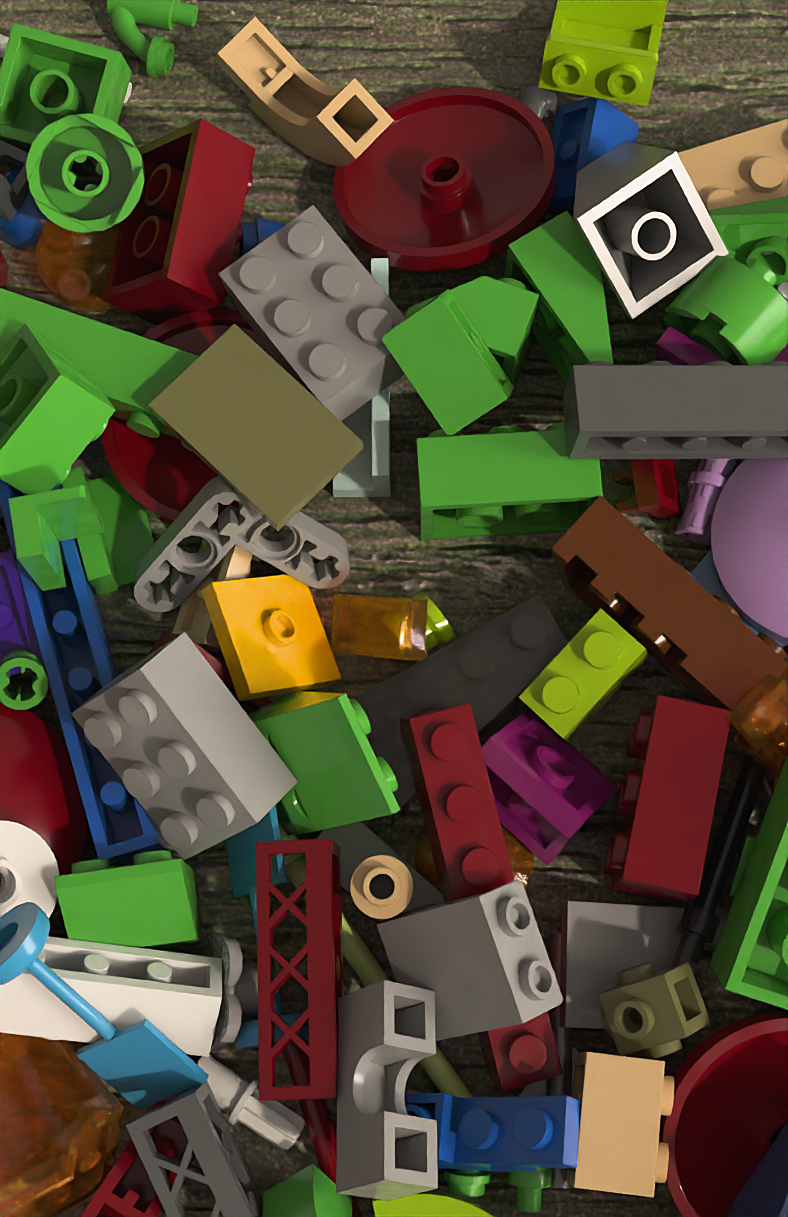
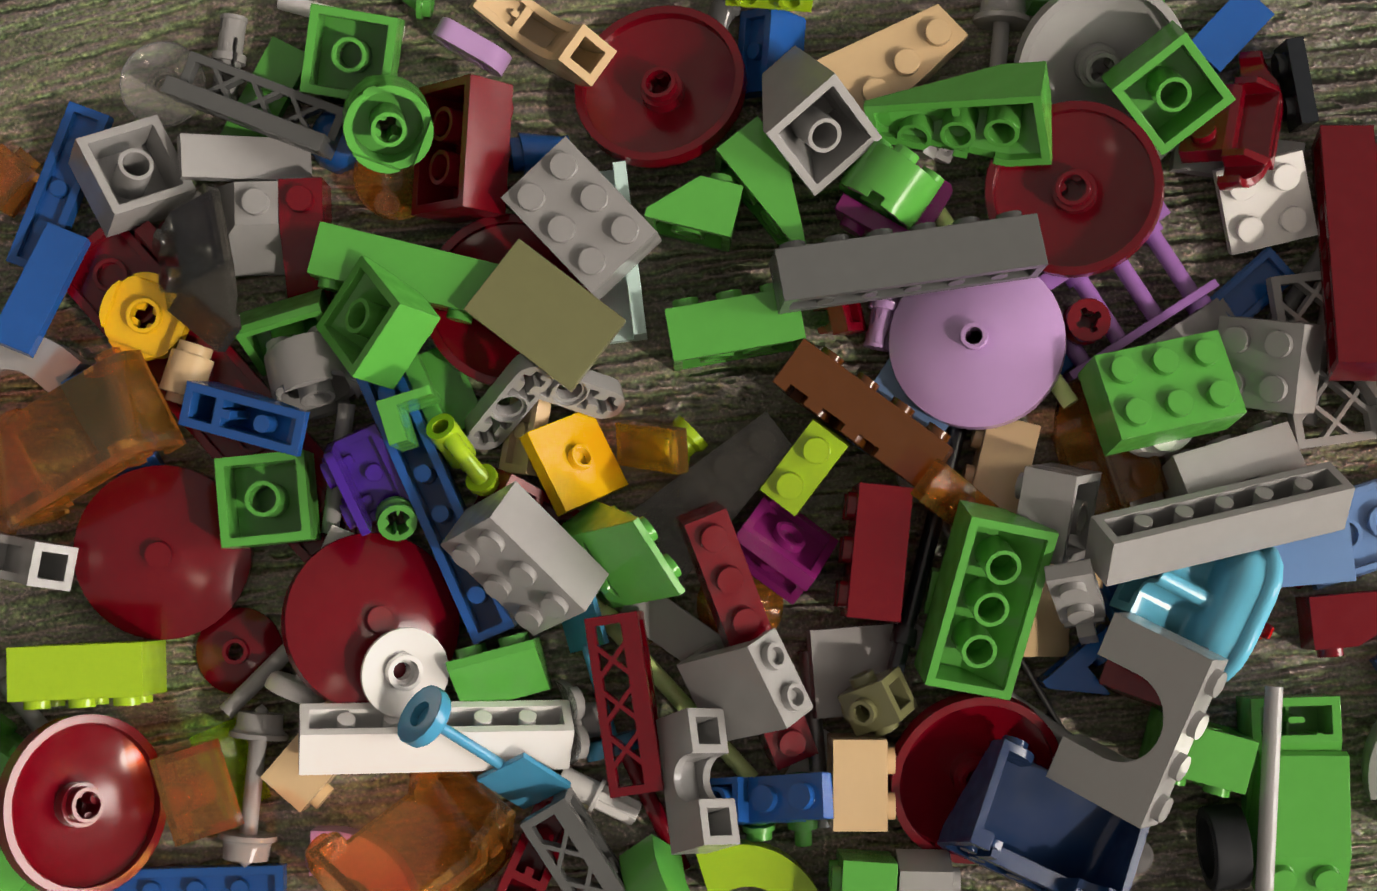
camera: 10 degrees left, 10 degrees up
(119, 602) = (460, 454): none -> lime plant
(197, 99) = (471, 46): none -> lavender beam
(386, 907) = (673, 625): tan brick -> none
(448, 363) = (683, 251): bright green panel -> none

